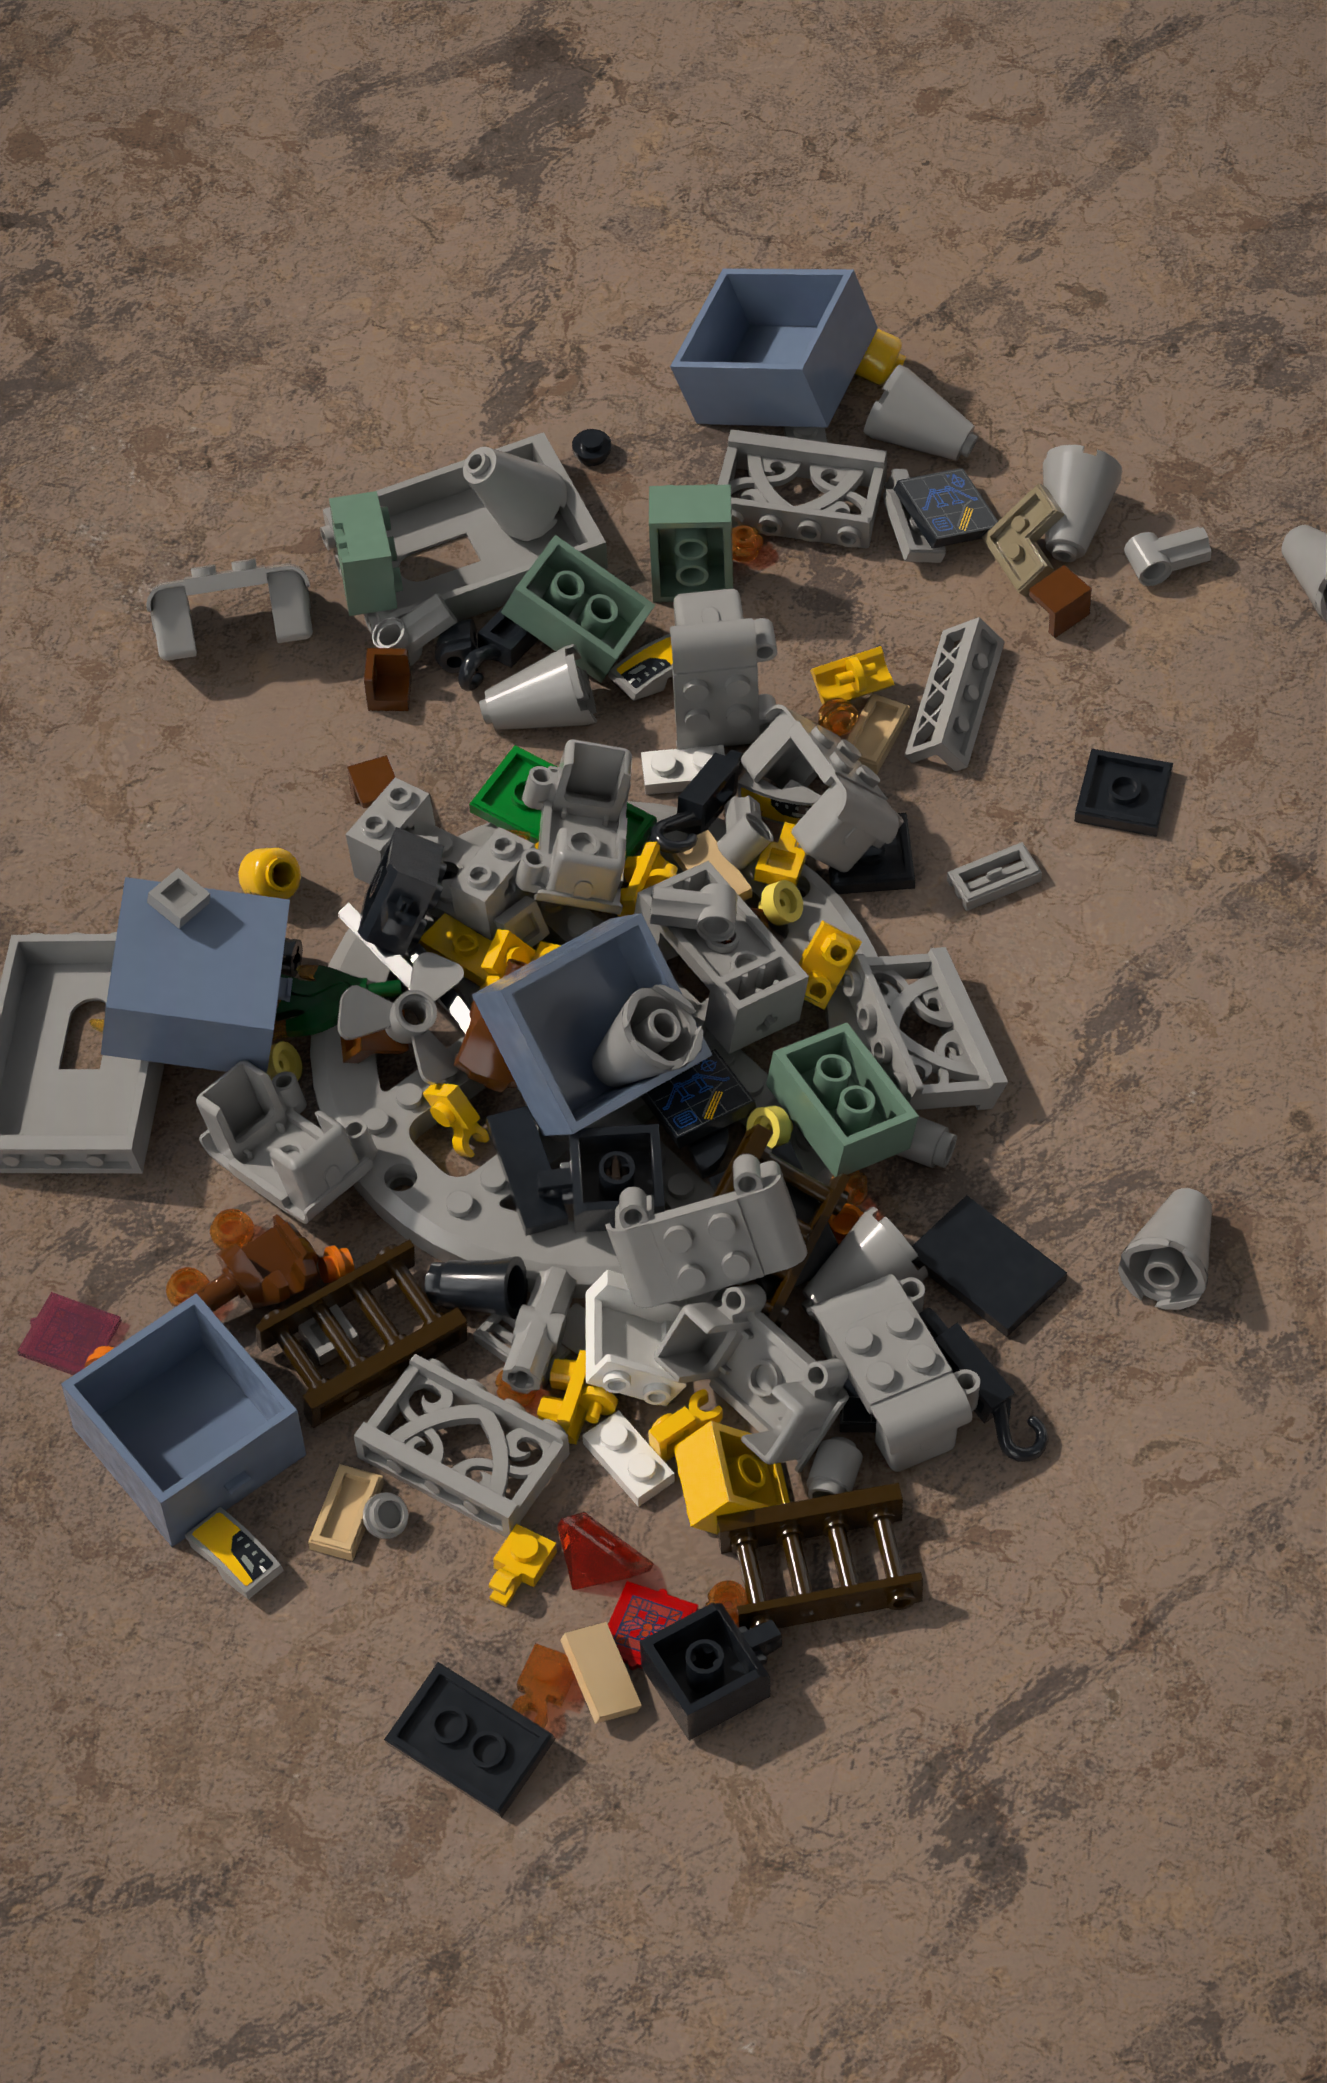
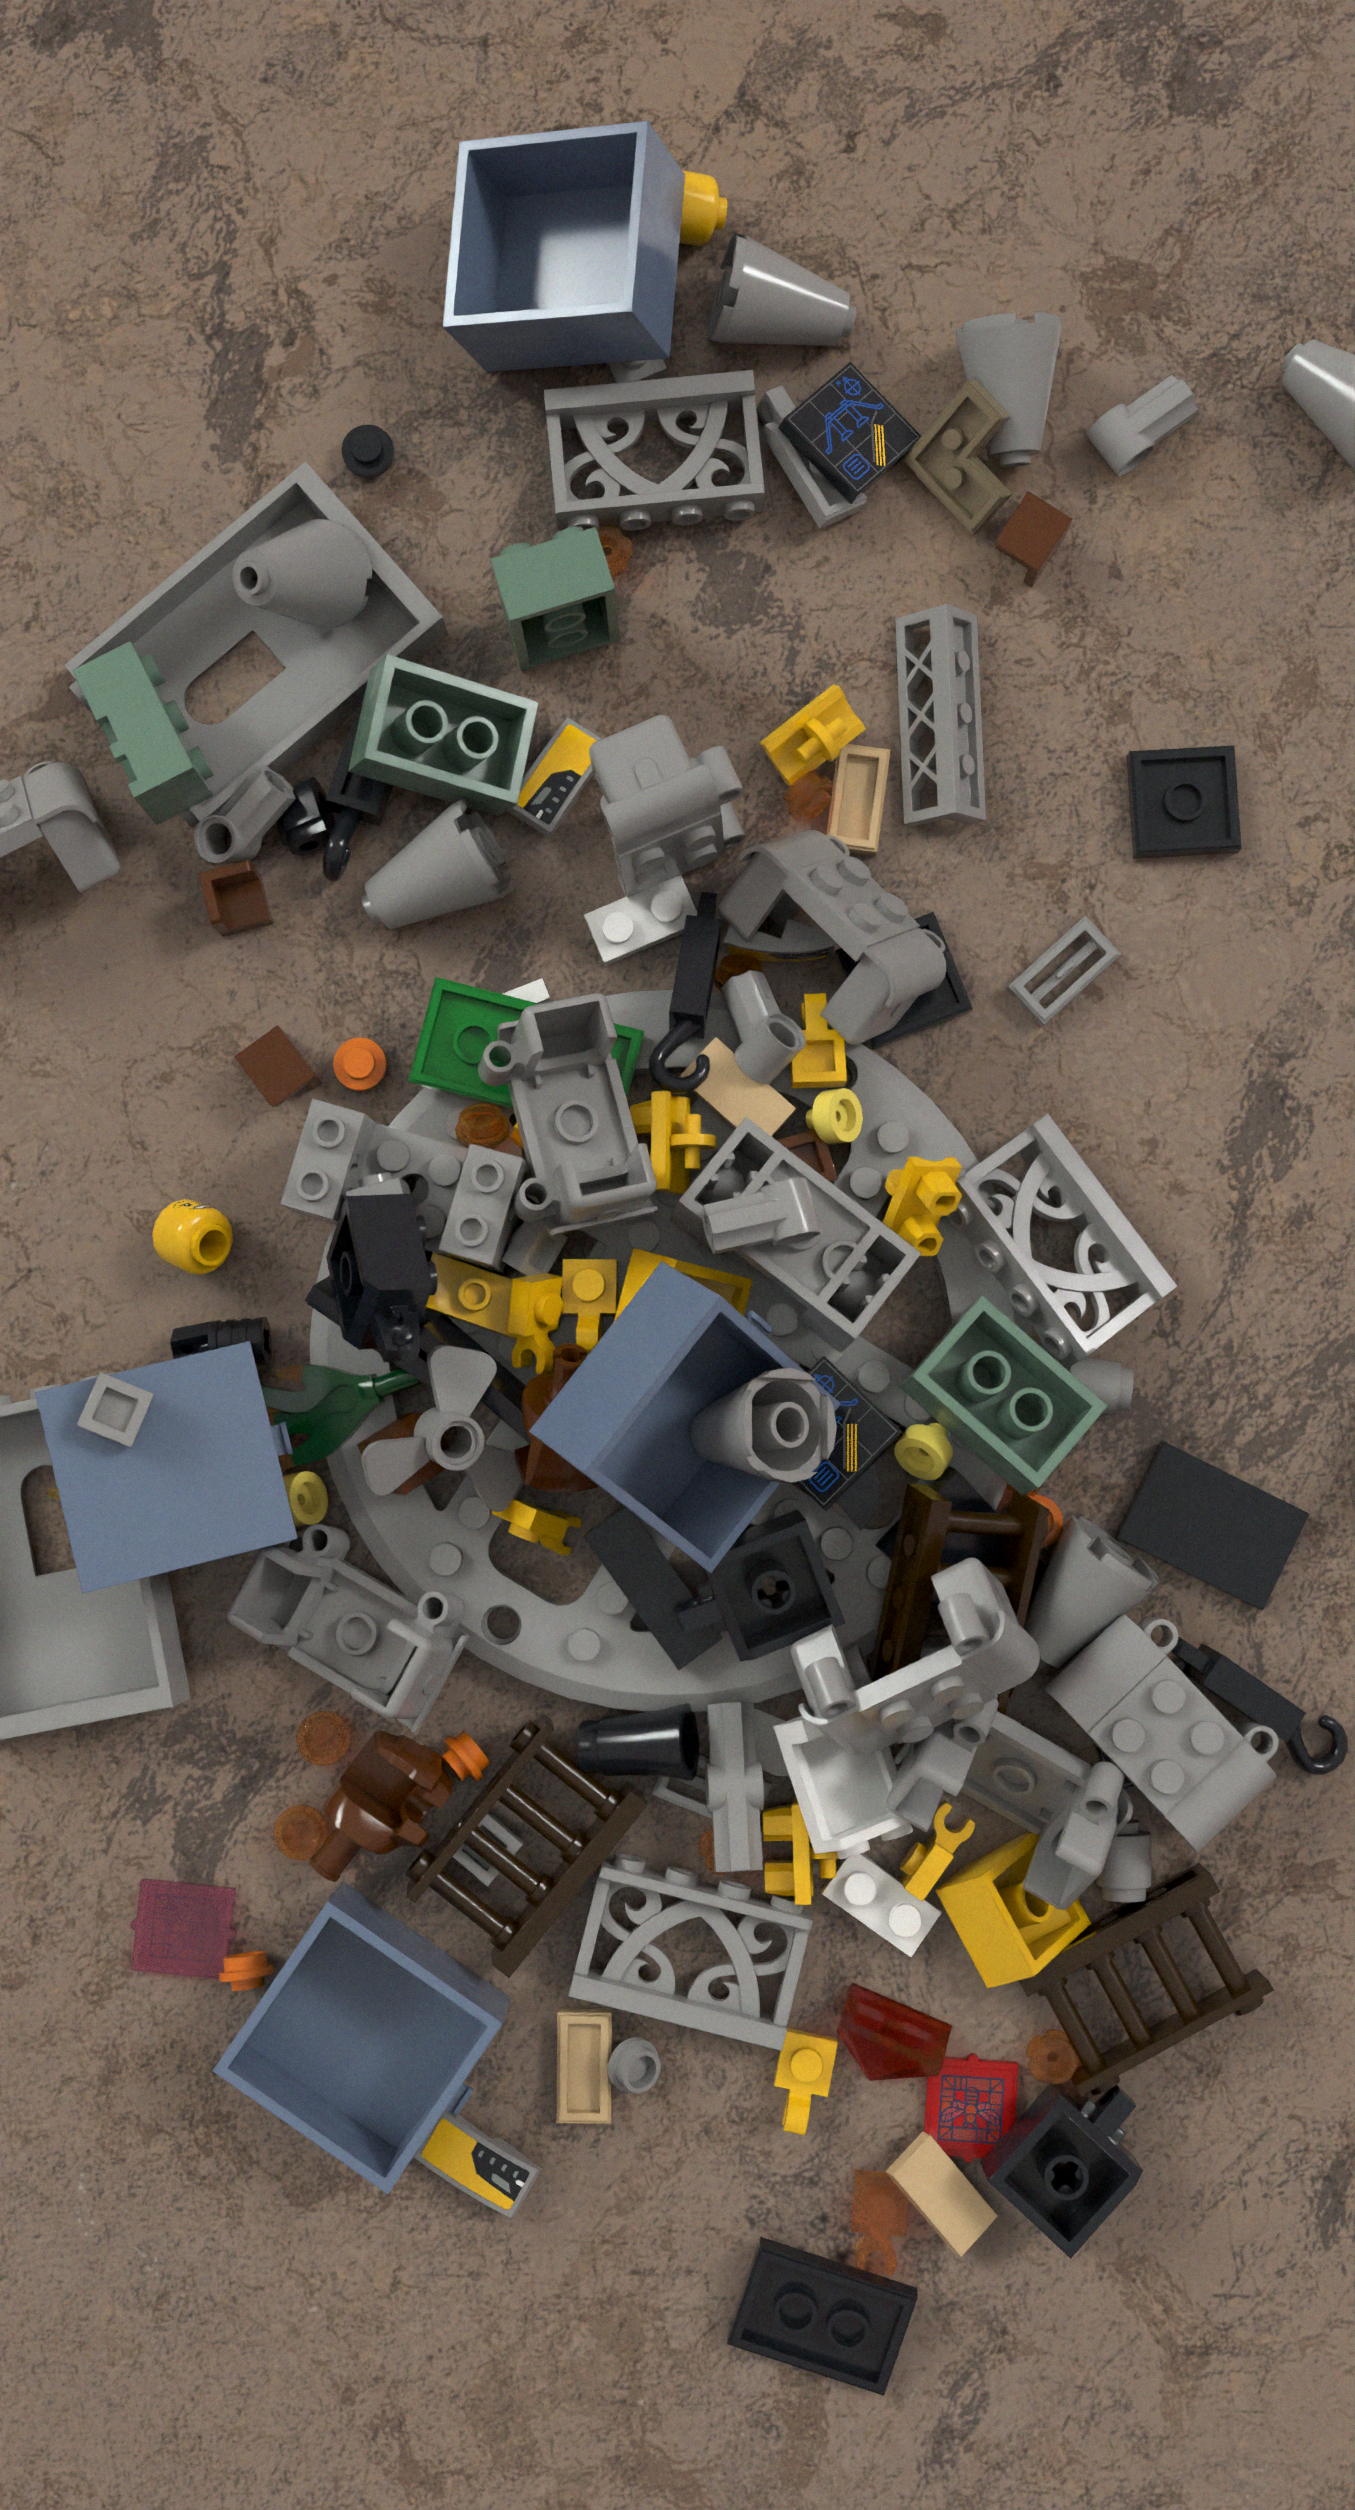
camera: 15 degrees left, 30 degrees up
(444, 805) = (360, 1064): none -> orange plate

